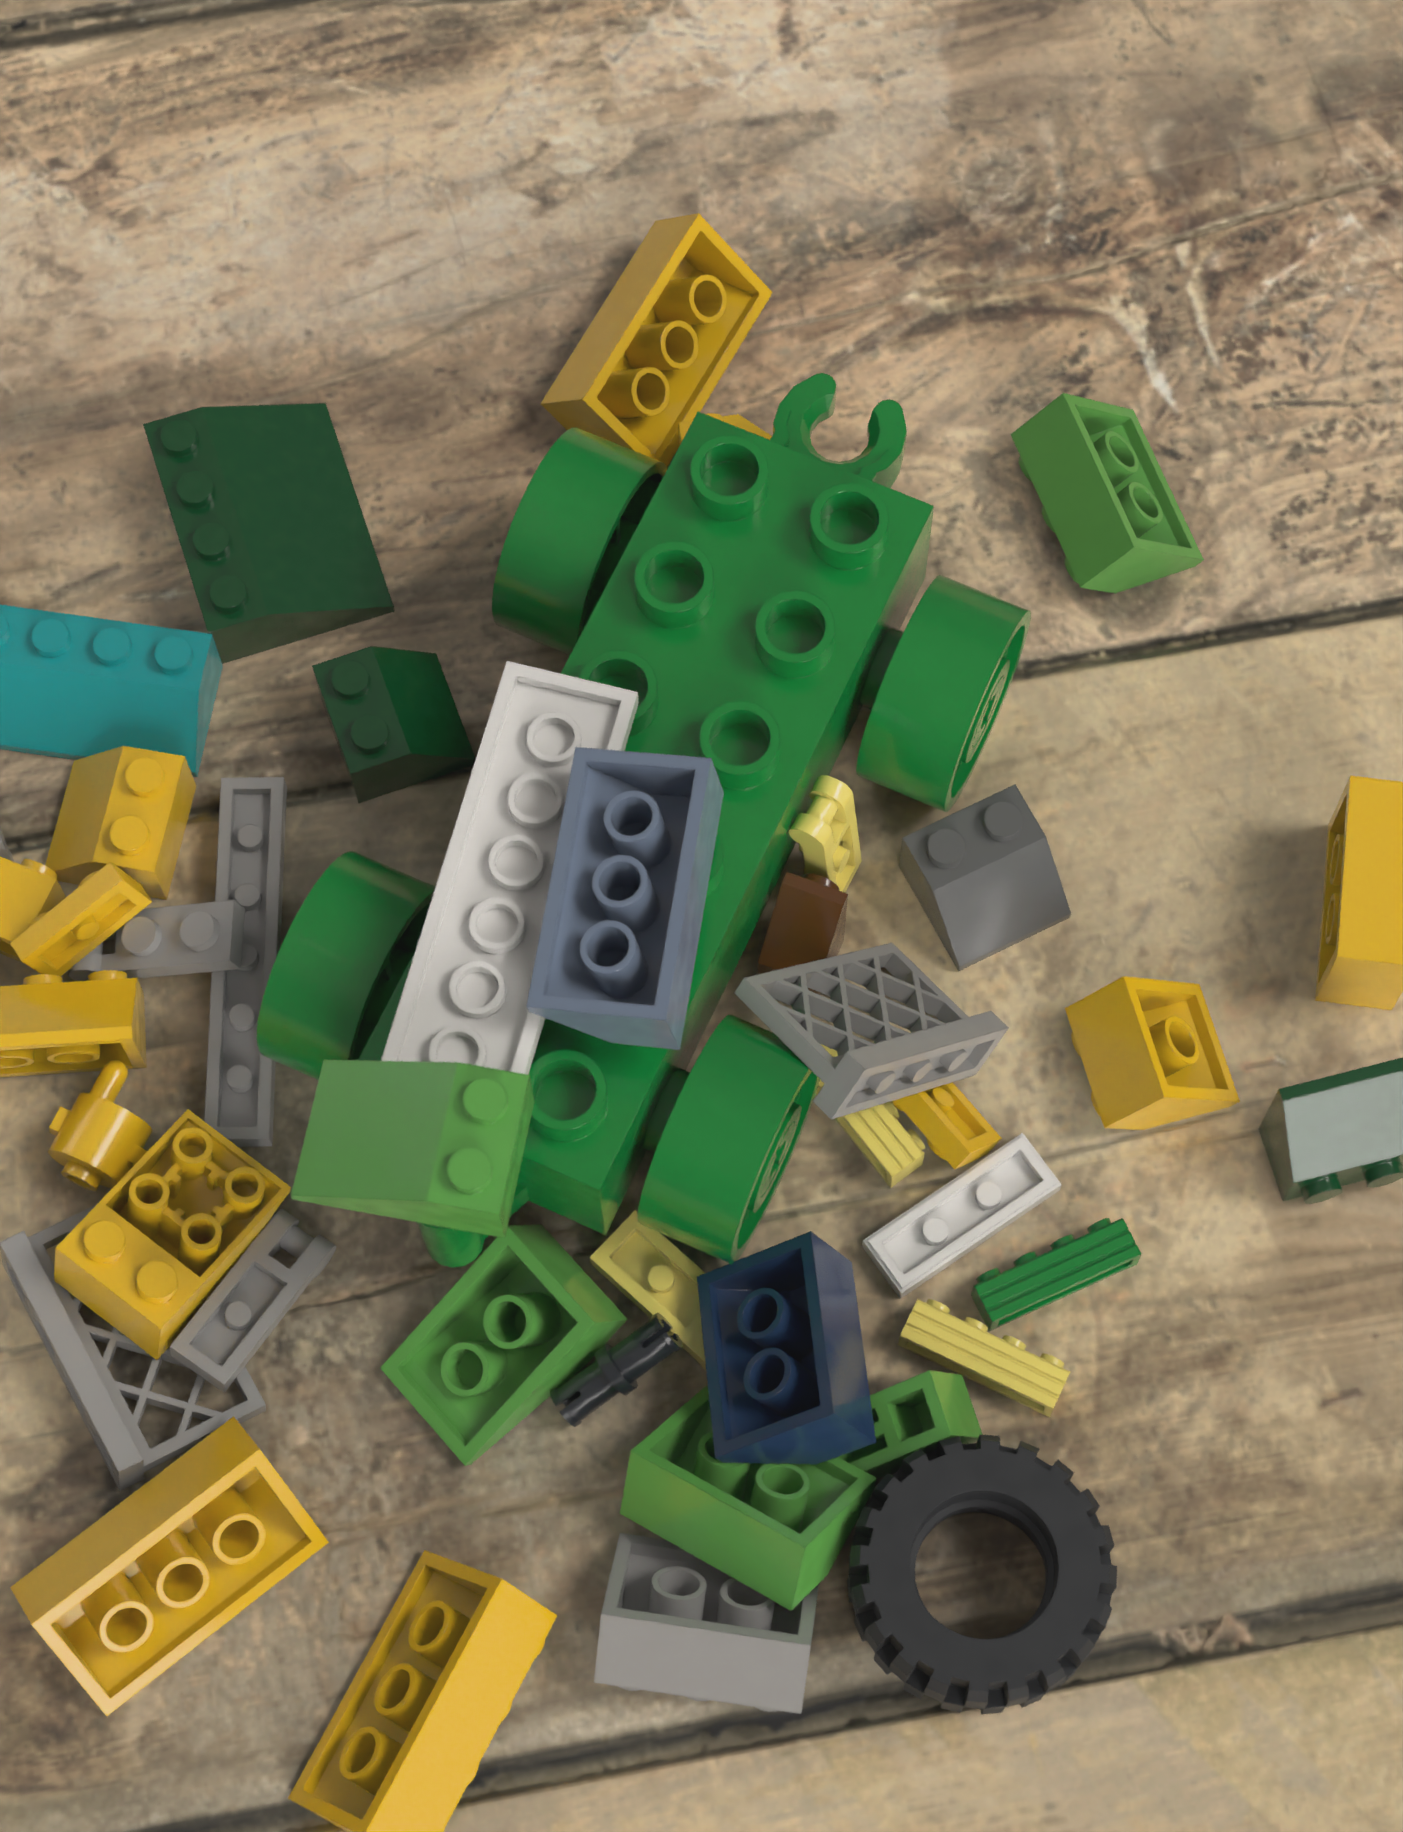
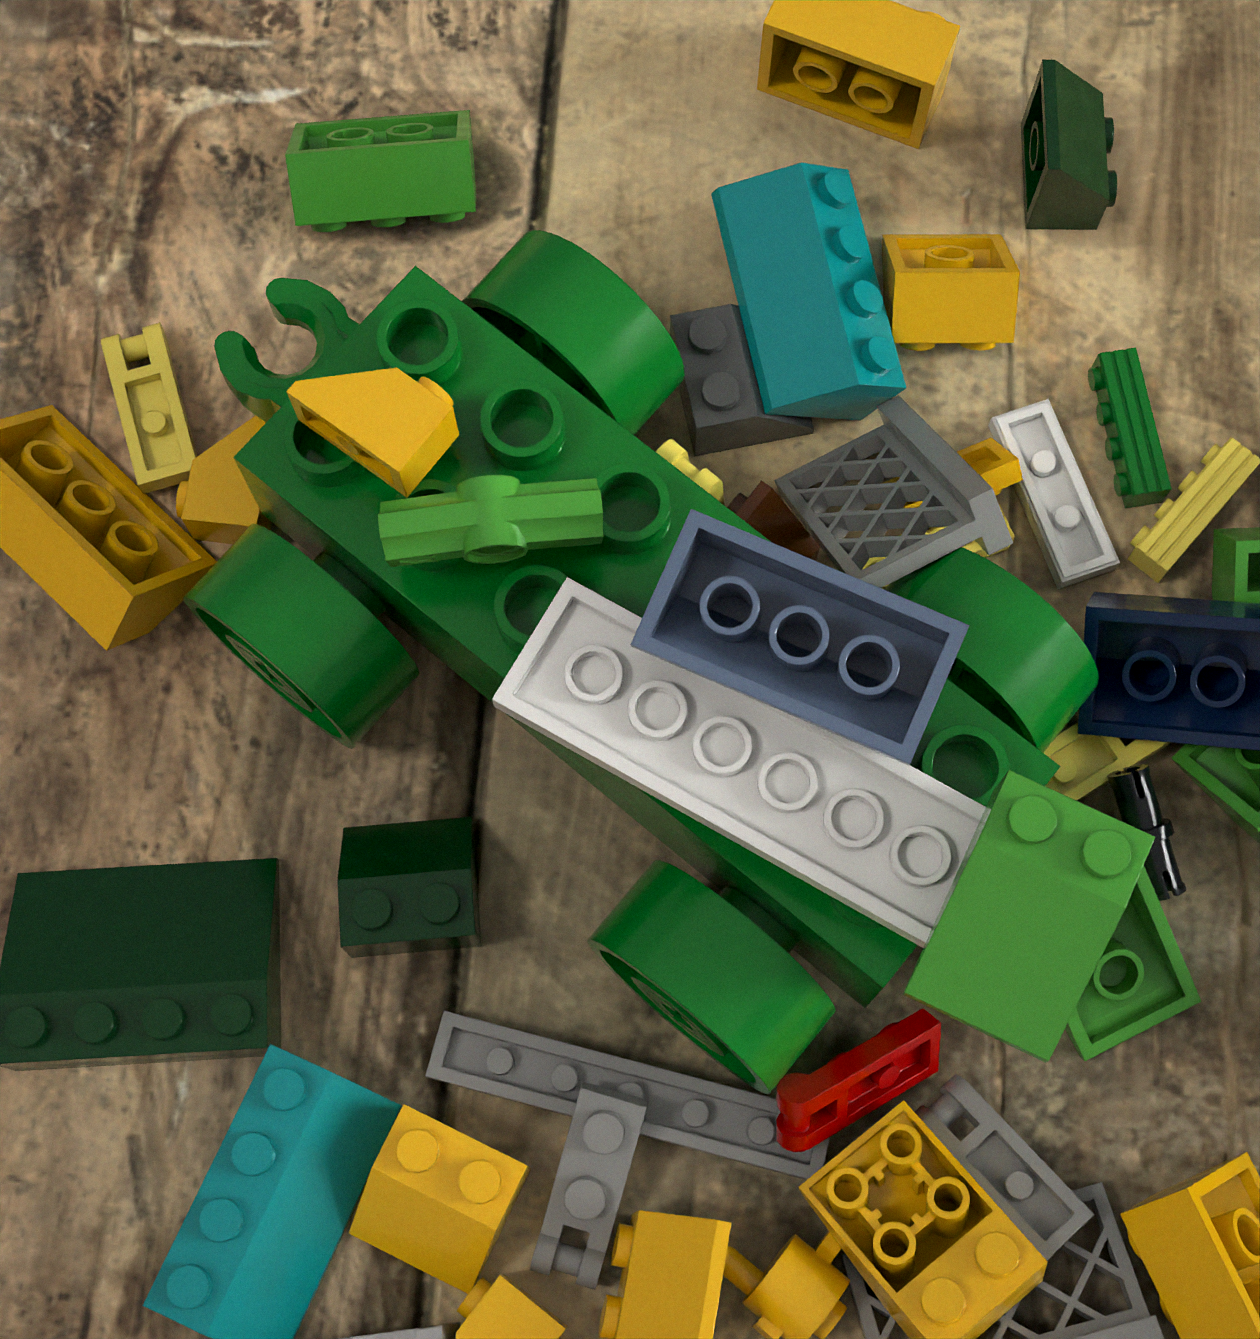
camera: 75 degrees left, 5 degrees up
(81, 921) = (567, 1283): yellow plate -> none
(275, 1122) = (856, 1081): none -> red plate
(675, 619) = (491, 521): none -> bright green piece
(742, 505) = (380, 421): none -> yellow slope
(765, 379) = (150, 408): none -> light yellow plate
(1088, 909) = (808, 293): none -> teal slope

